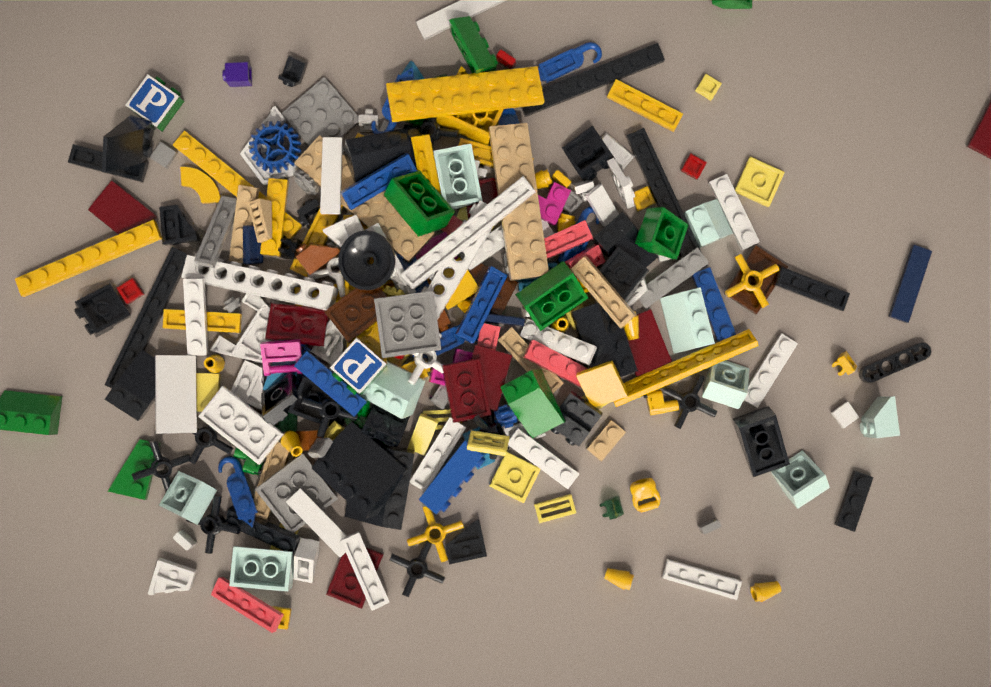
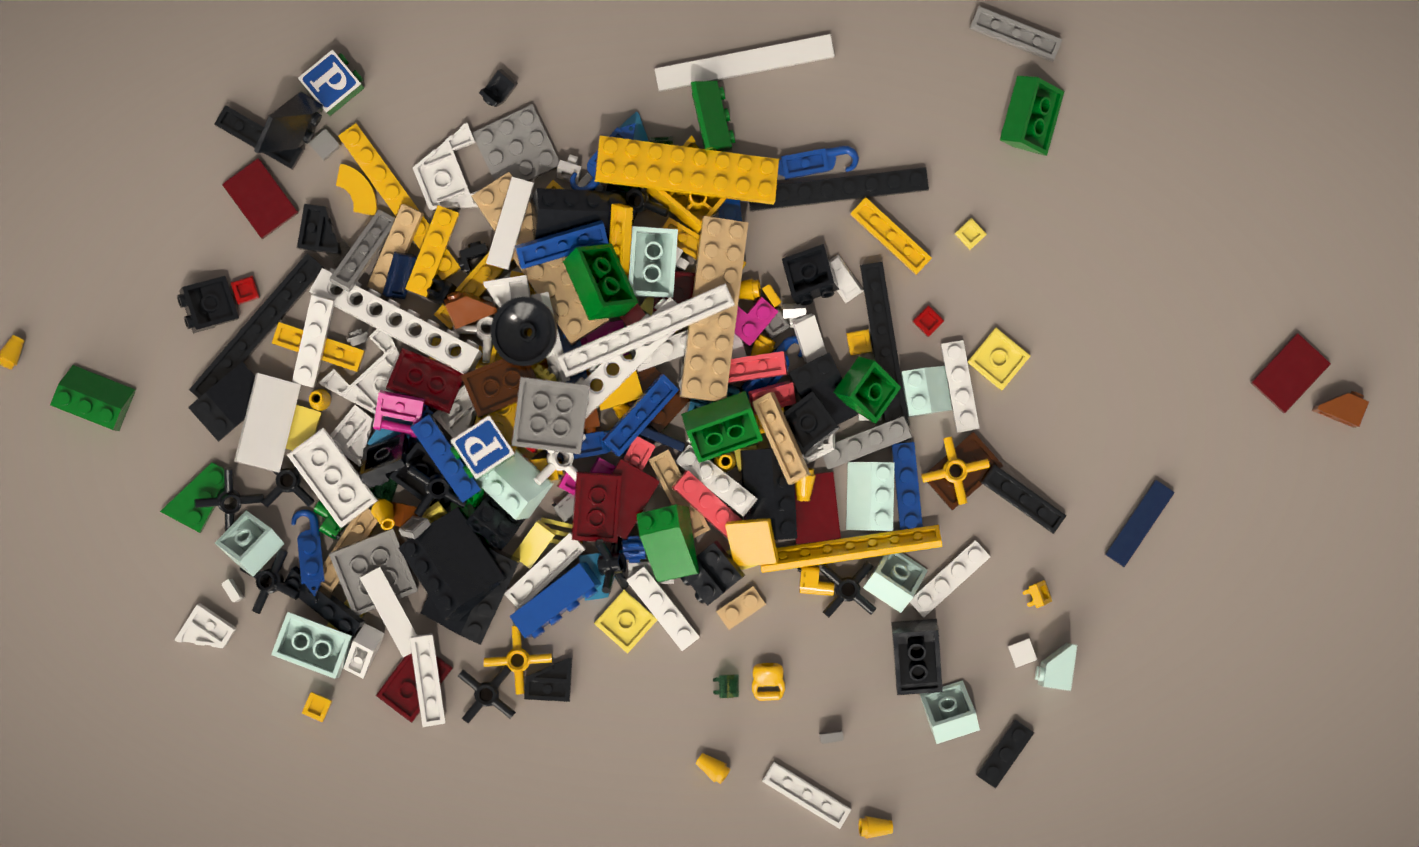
camera: 20 degrees right, 0 degrees up
(88, 258) = (208, 240): yellow plate -> none
(237, 74) = (434, 75): dark purple brick -> none
(247, 604) = (284, 681): coral plate -> none
(262, 219) = (418, 250): tan slope -> none
(272, 154) = (448, 180): blue gear -> none
(305, 182) = (478, 221): light grey gear -> none
(488, 446) = (603, 575): light yellow tile -> none
(506, 59) = (745, 140): red tile -> none
(551, 501) = (642, 669): light yellow tile -> none
(622, 183) = (839, 320): white wing -> none
(896, 365) = (1096, 608): black beam -> none

